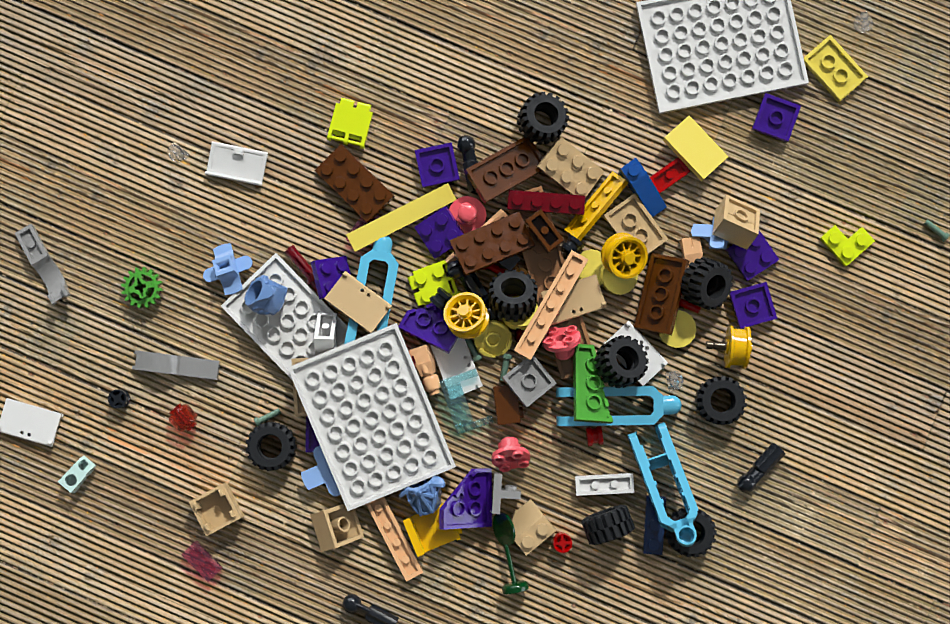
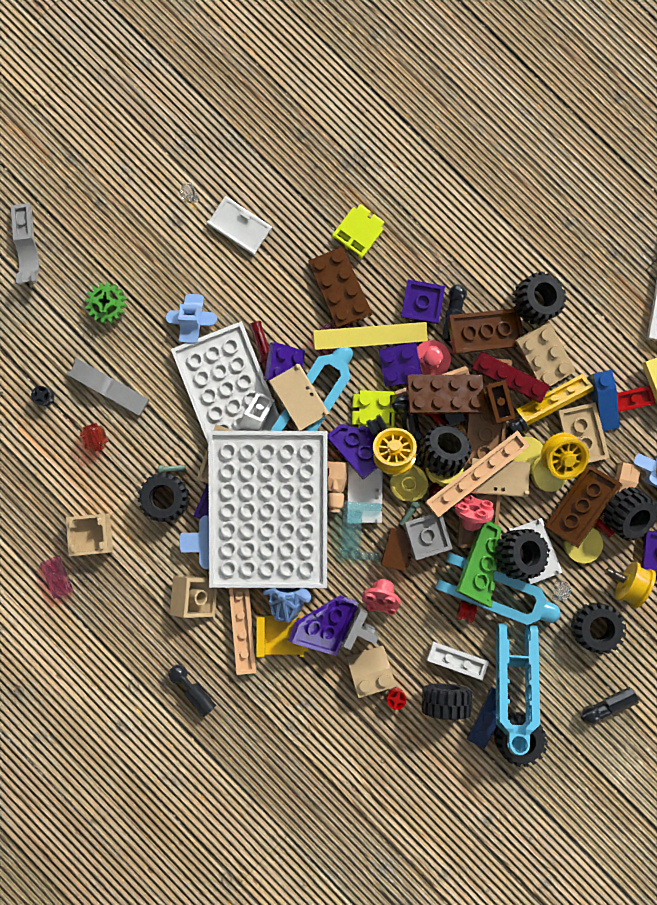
camera: 15 degrees right, 0 degrees up
(265, 296) = (215, 356): medium blue piece -> none
(476, 357) = (386, 487): sand green piece -> none
(505, 534) = (347, 669): dark green piece -> none

